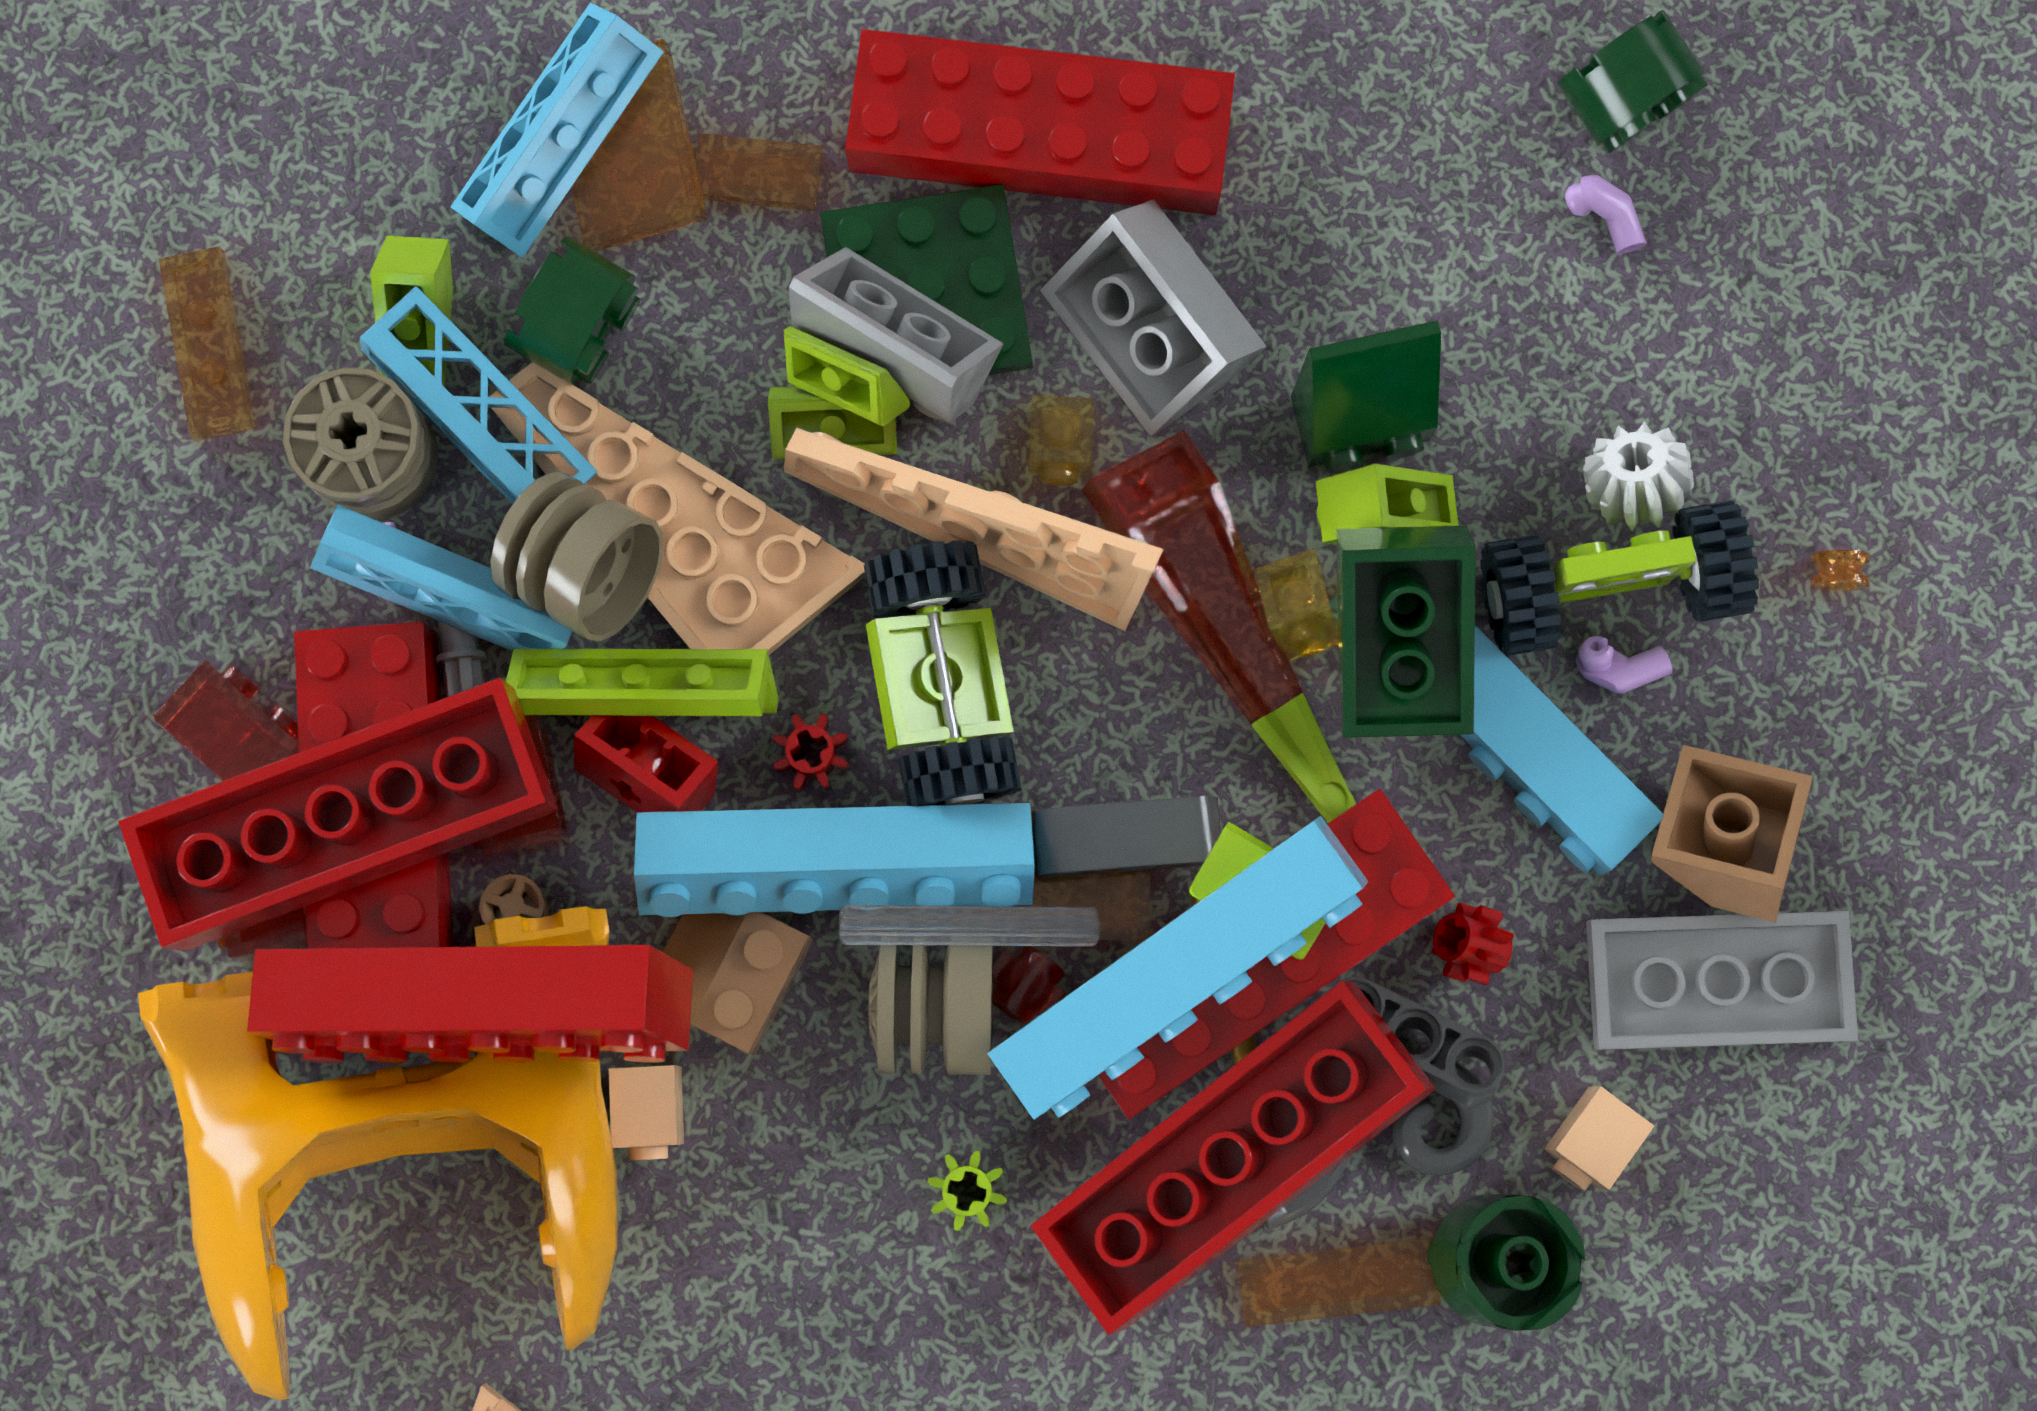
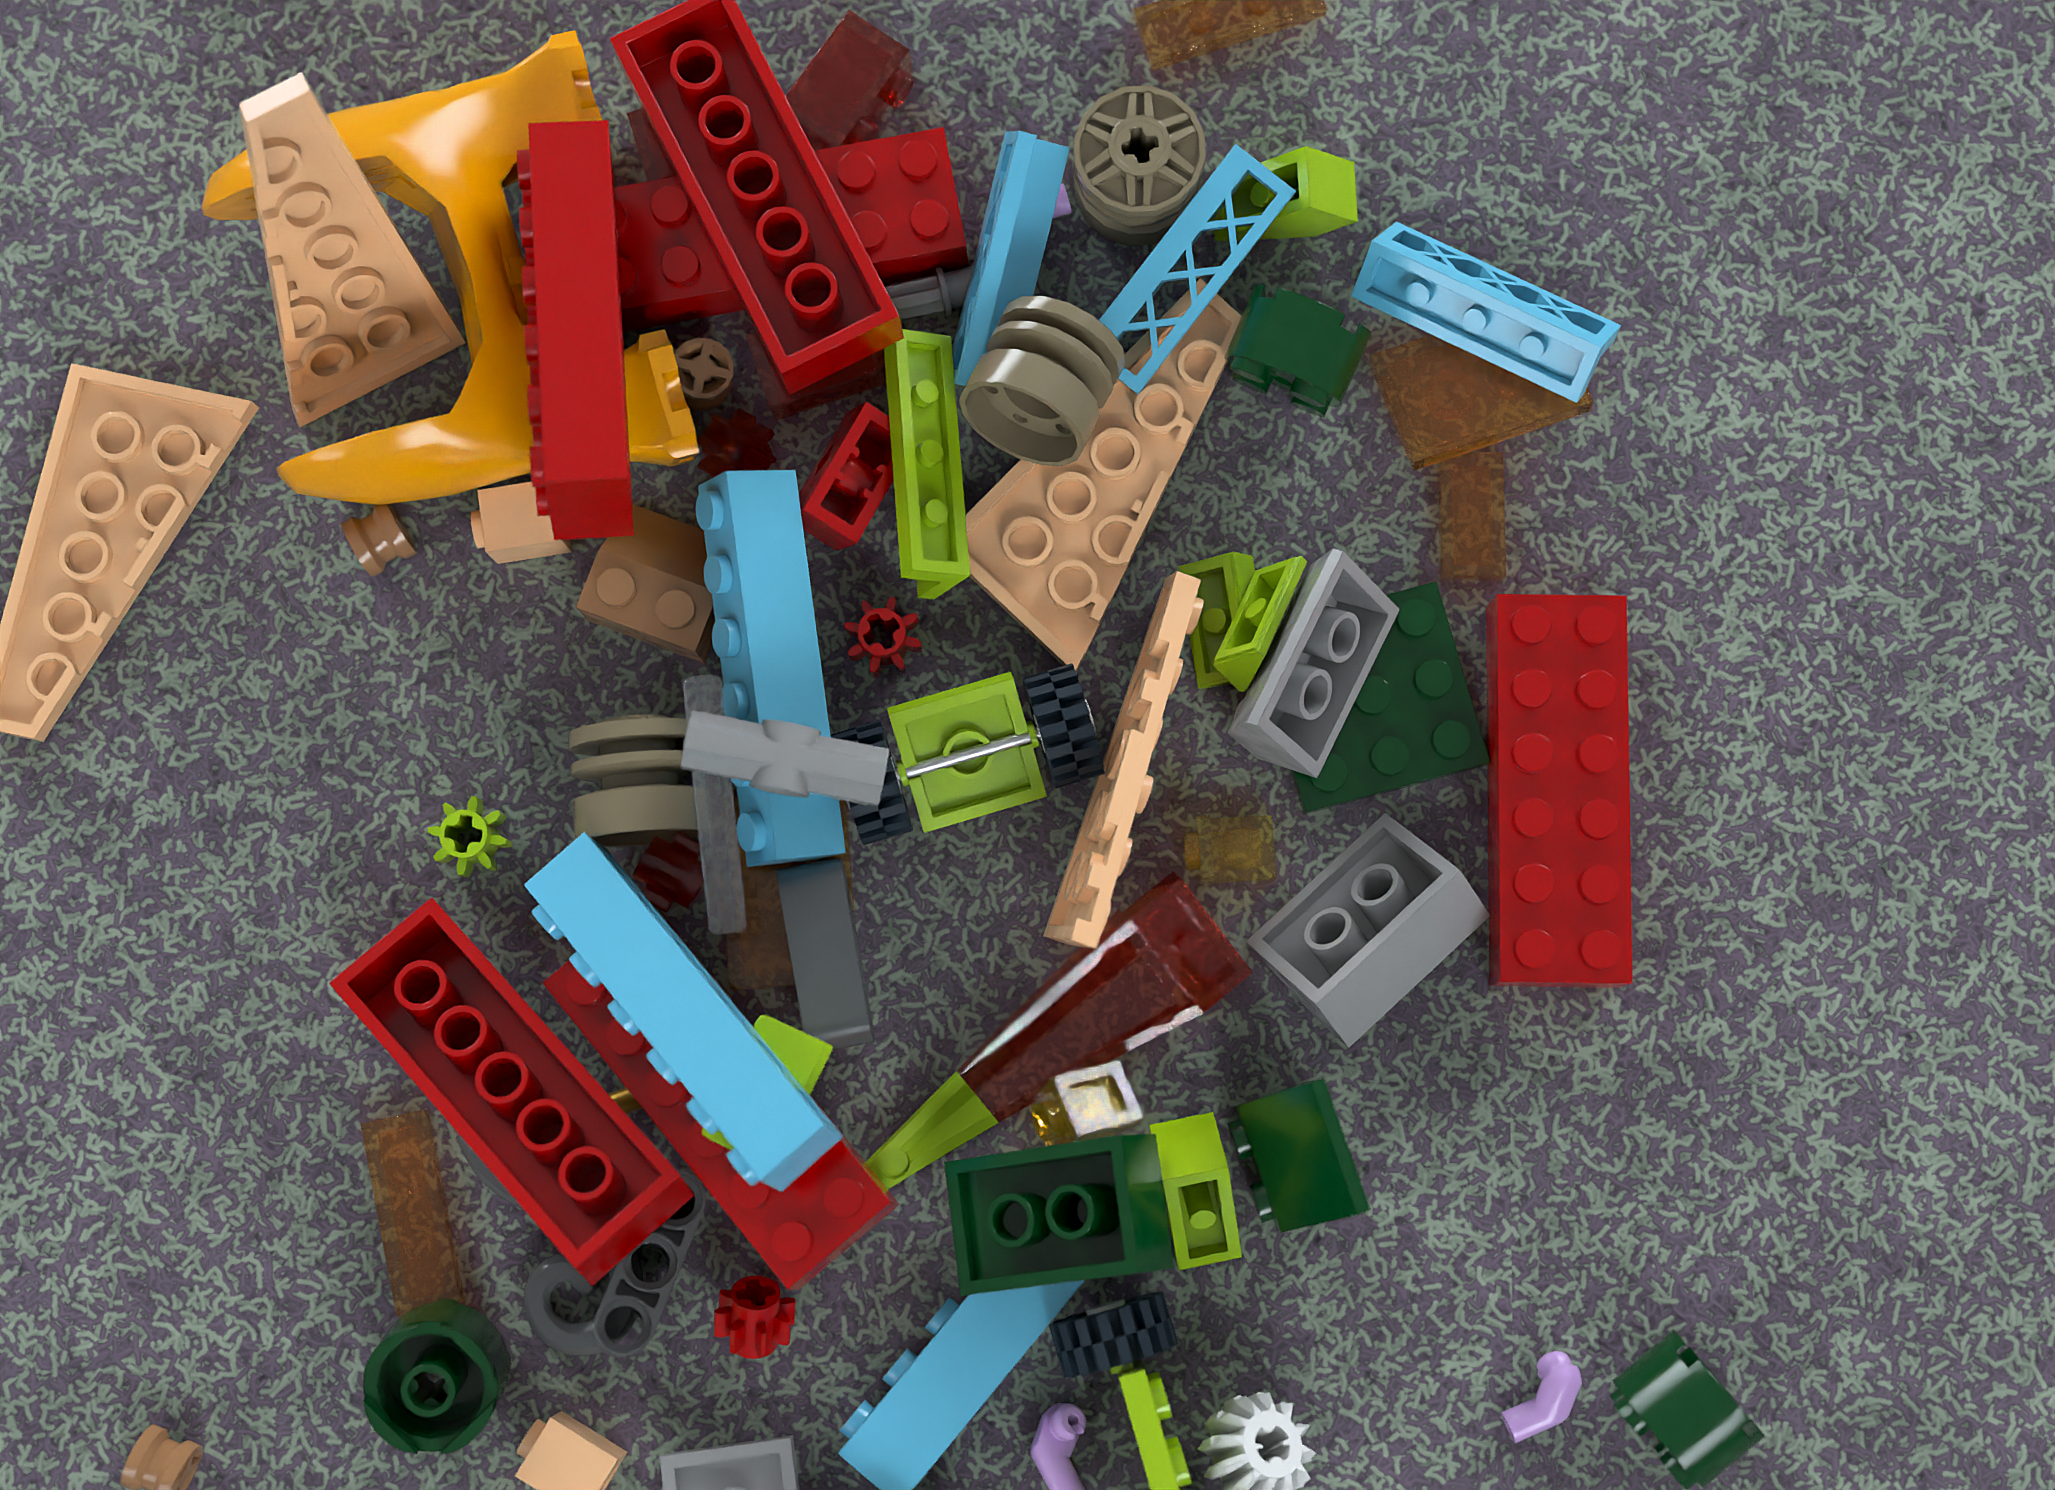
camera: 90 degrees right, 0 degrees up
(357, 1258) = (339, 271): none -> light nougat wing
(600, 879) = (735, 445): none -> clear red gear
(645, 1261) = (378, 538): none -> medium nougat wheel
(937, 840) = (784, 758): none -> light grey piece

